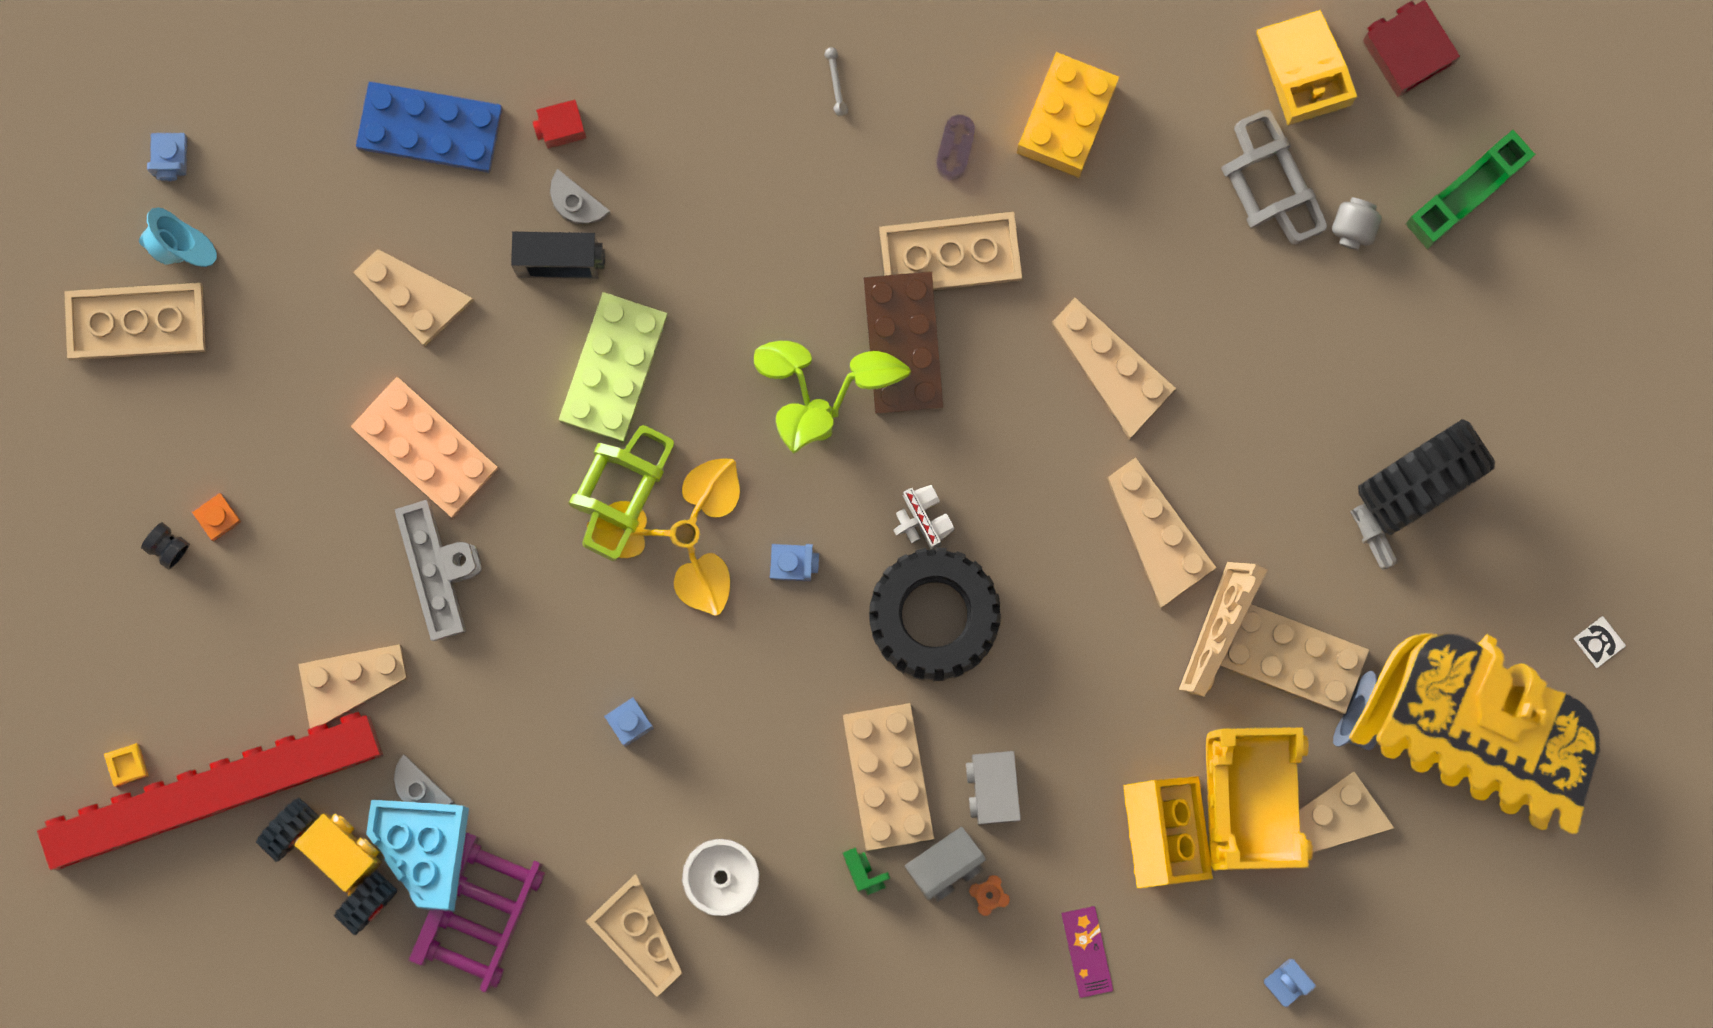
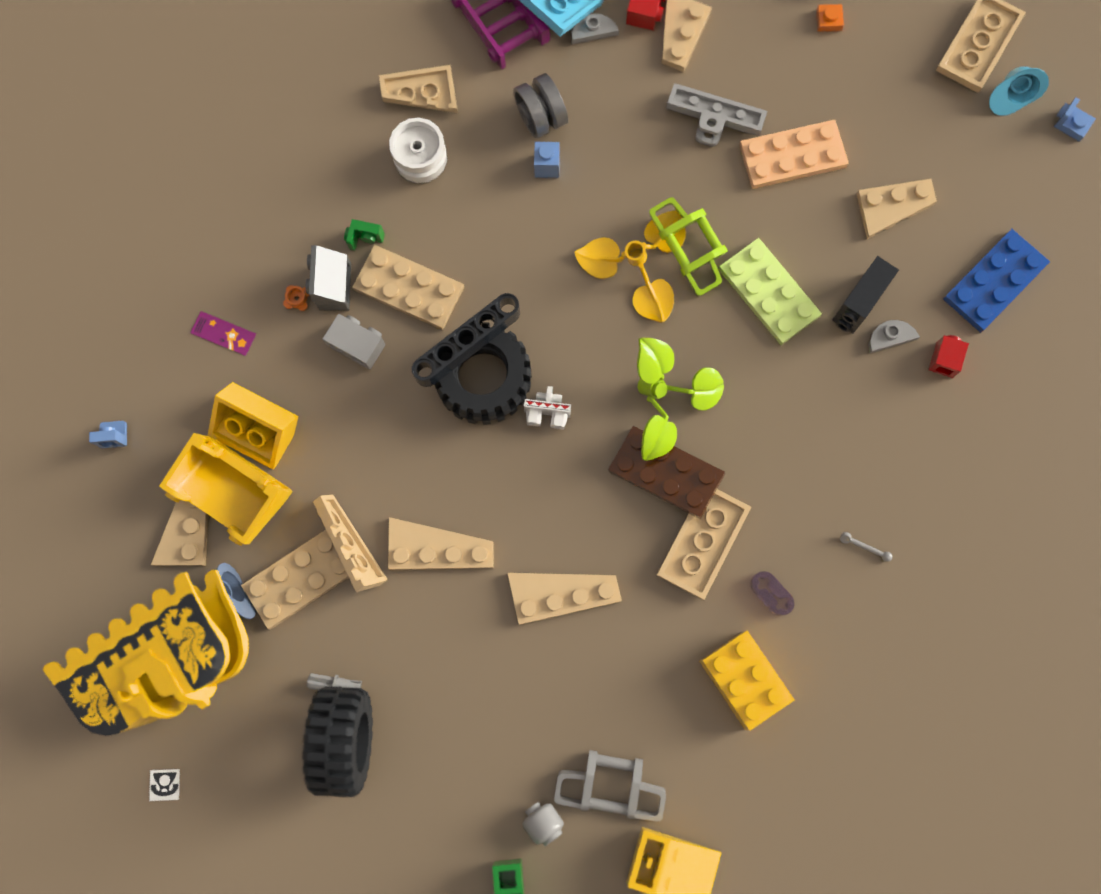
camera: 130 degrees right, 5 degrees down
(569, 769) = (540, 105): none -> flat silver wheel
(793, 562) = (575, 317): medium blue bracket -> none
(936, 639) = (470, 328): none -> black beam

